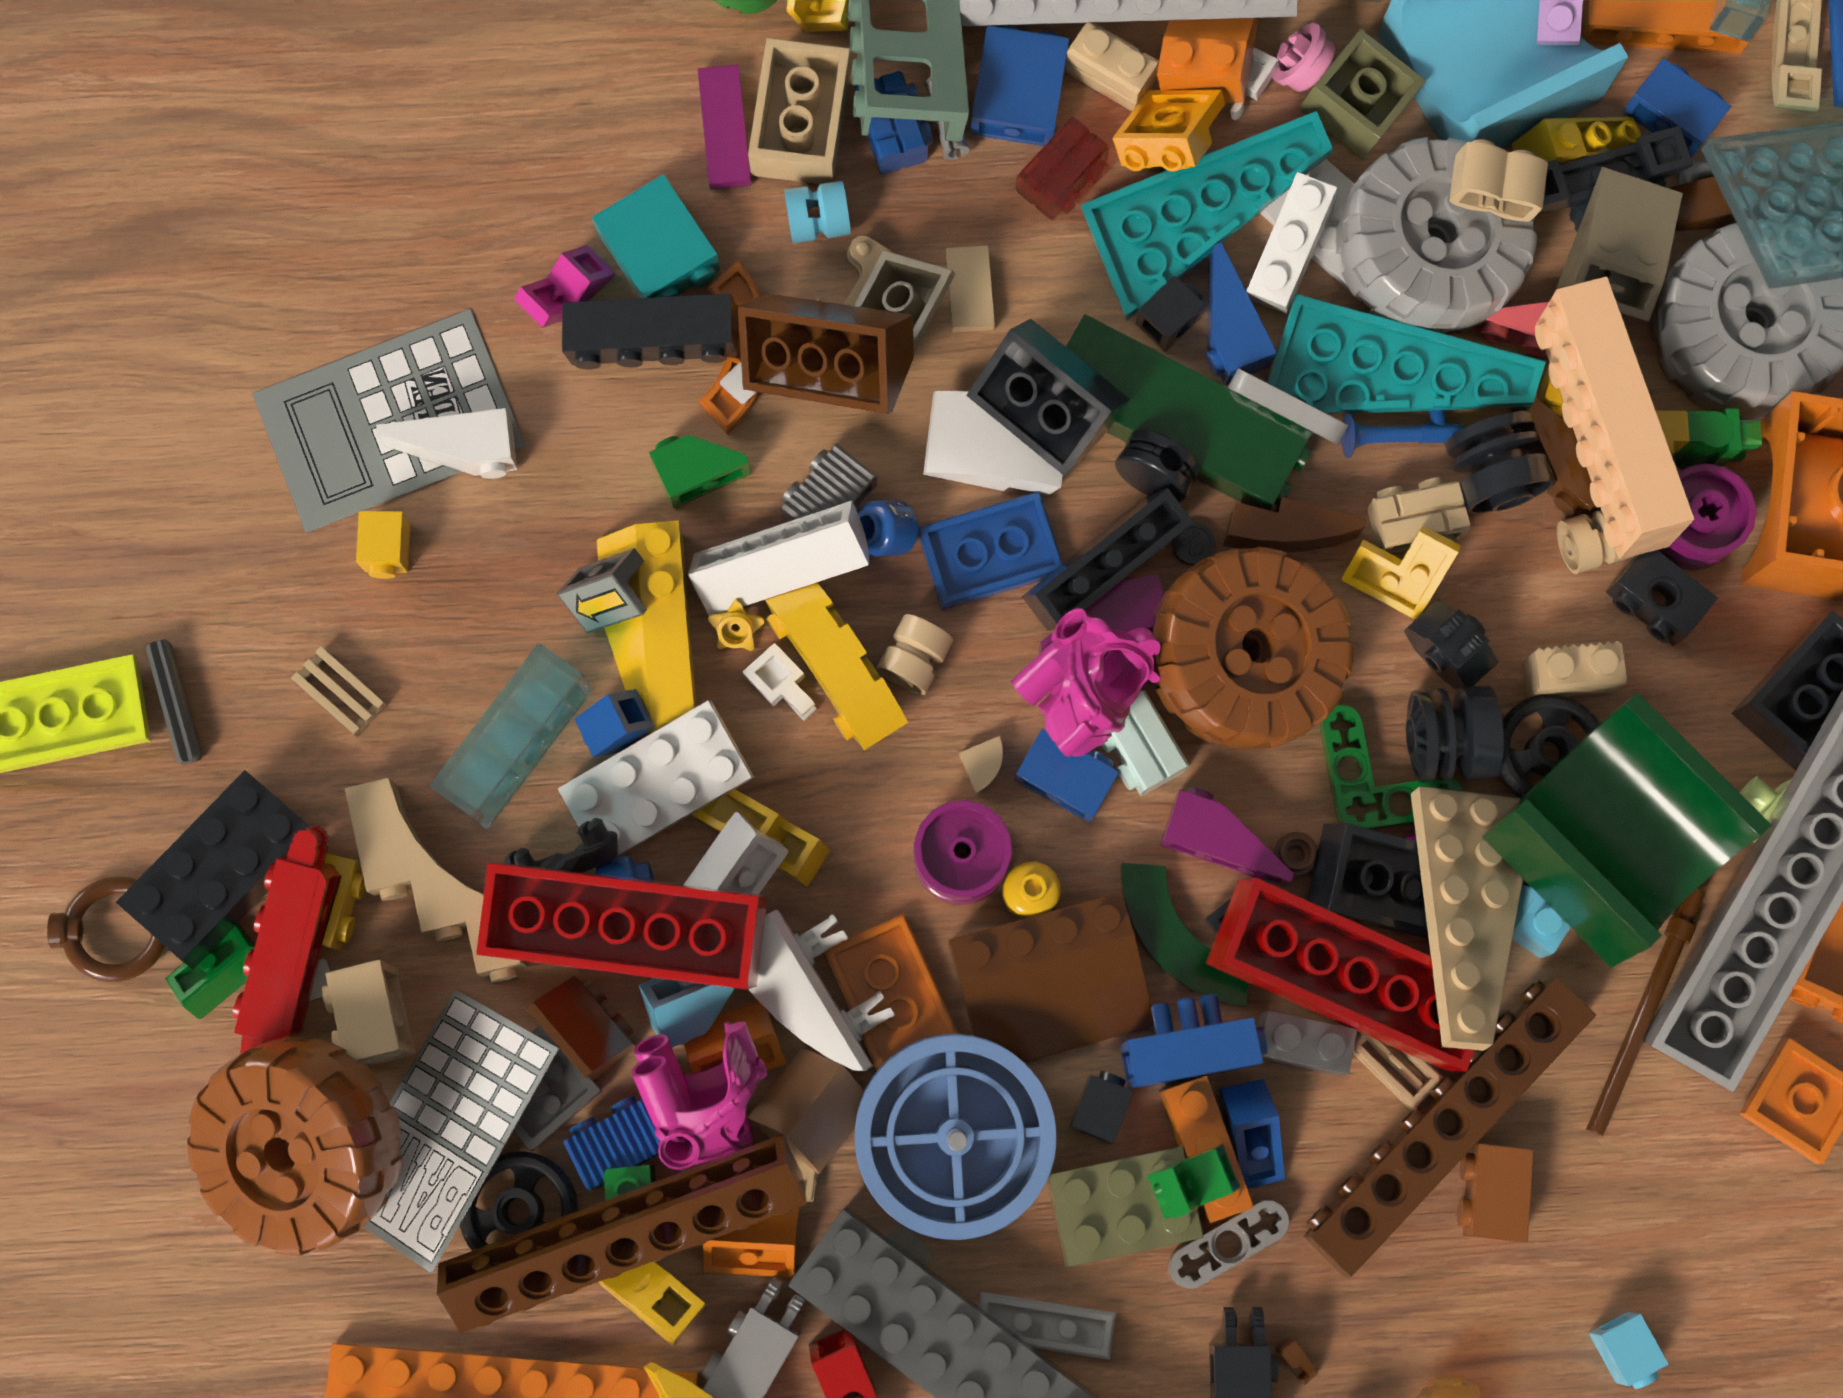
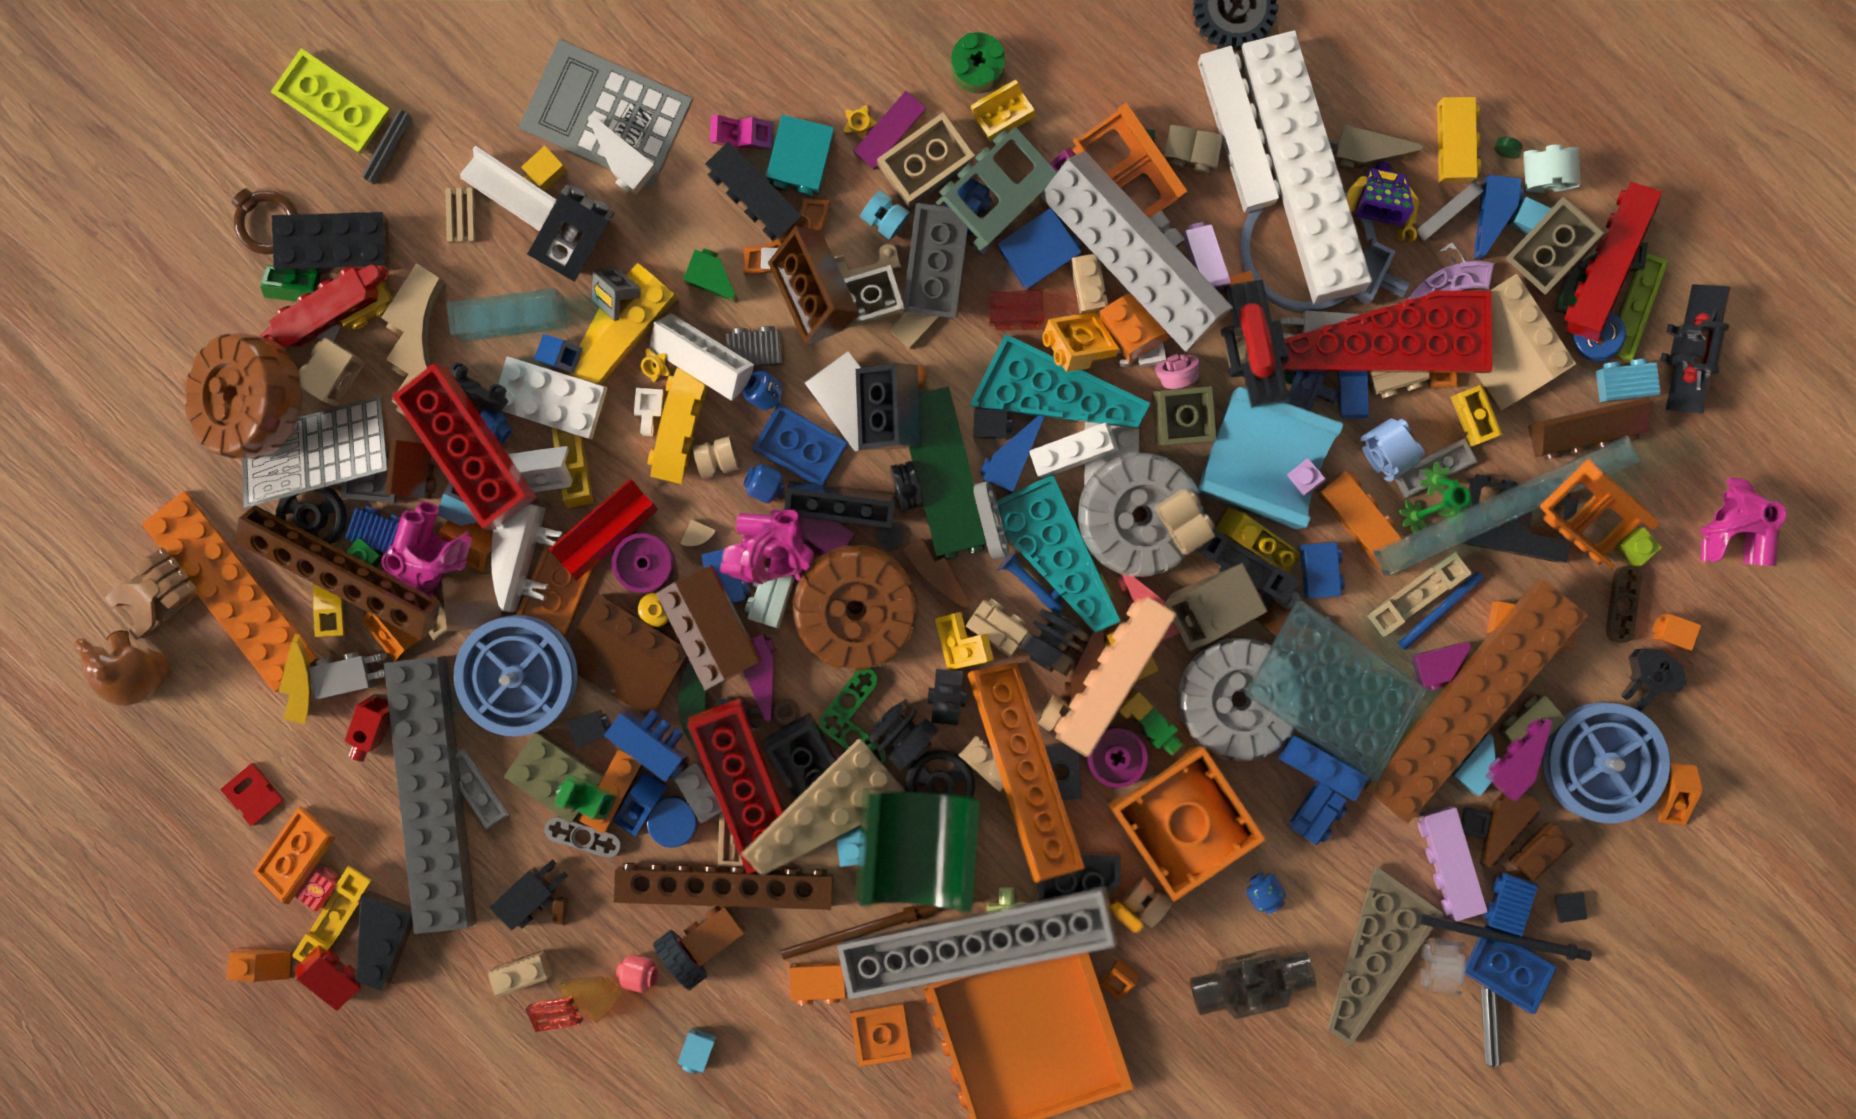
camera: 50 degrees right, 10 degrees up
(374, 600) = (508, 188): none -> white panel
(479, 534) = (582, 215): none -> black brick
(681, 141) = (854, 116): none -> yellow plate
(876, 864) = (603, 529): none -> red panel
(927, 196) = (935, 262): none -> dark grey plate
(997, 628) = (763, 483): none -> blue head
(1116, 841) = (708, 627): none -> reddish brown slope
(1312, 1113) = (672, 822): none -> blue head
(1464, 1334) = (637, 973): none -> coral head
(1499, 1259) = (679, 960): none -> black wheel
(1634, 628) = (1025, 772): none -> orange plate
(1670, 1117) = (817, 982): none -> orange brick

